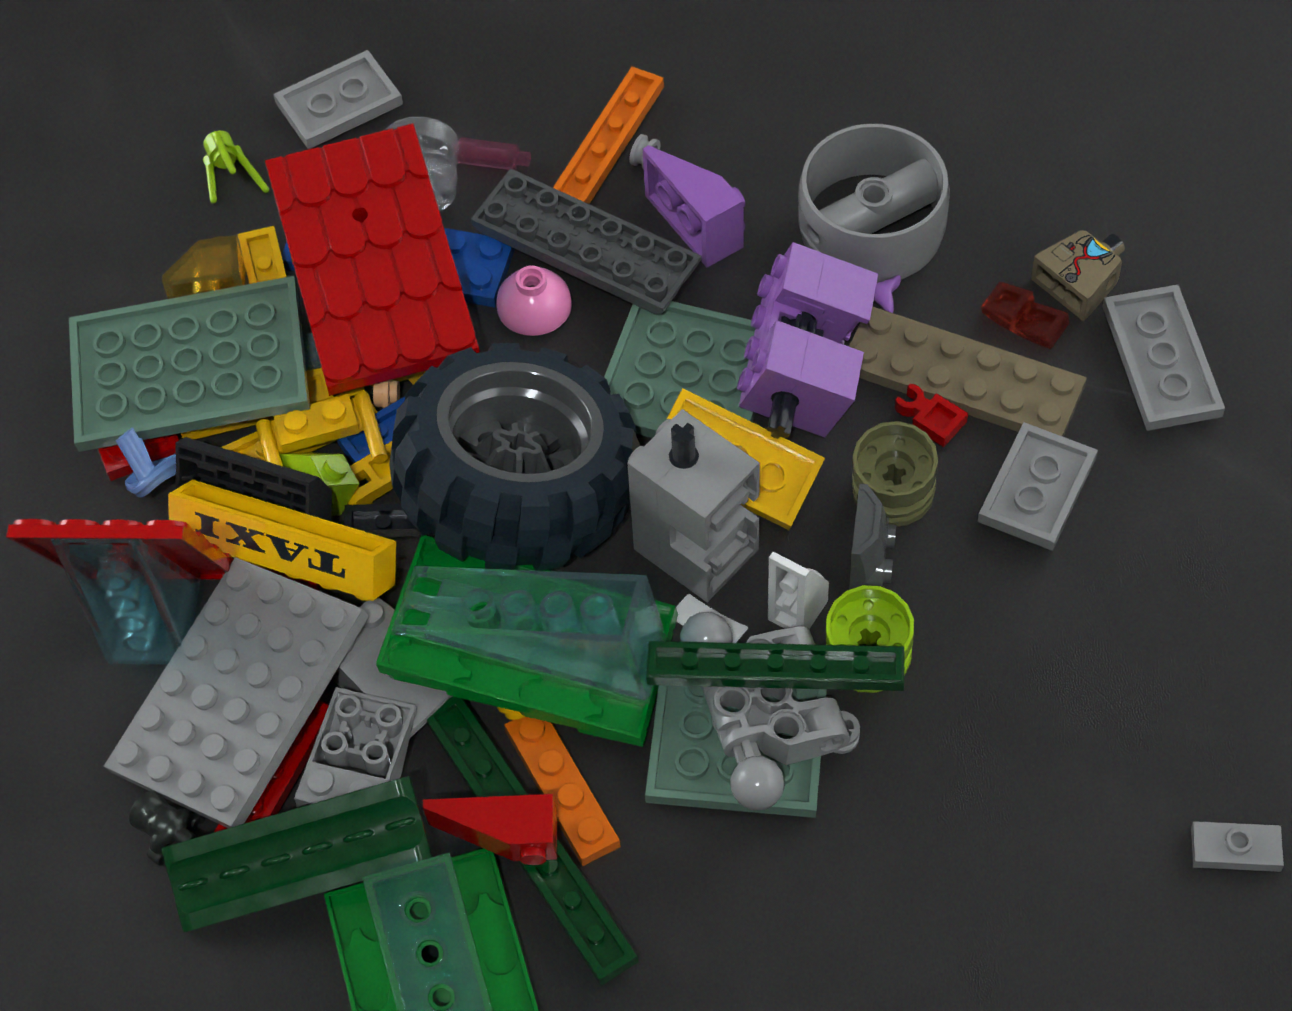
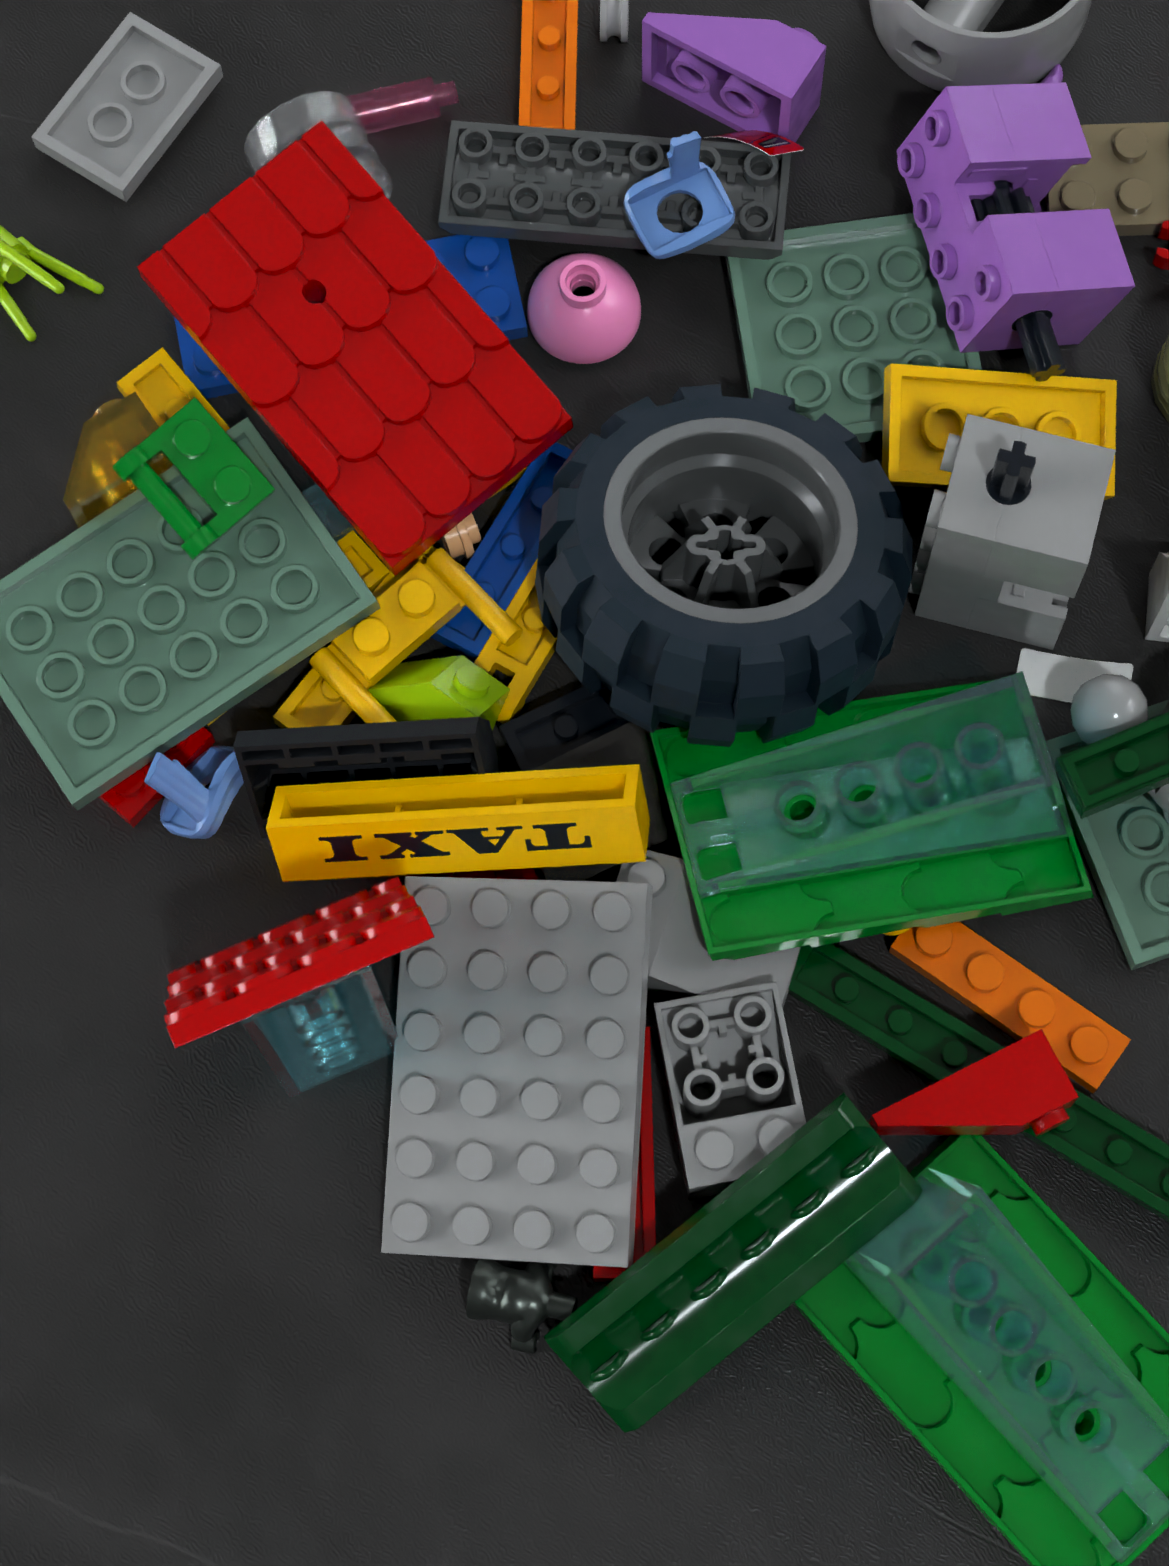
camera: 25 degrees left, 15 degrees up
(253, 290) = (208, 464): none -> green plate
(619, 241) = (682, 176): none -> medium blue piece
(688, 248) = (765, 141): none -> red sticker

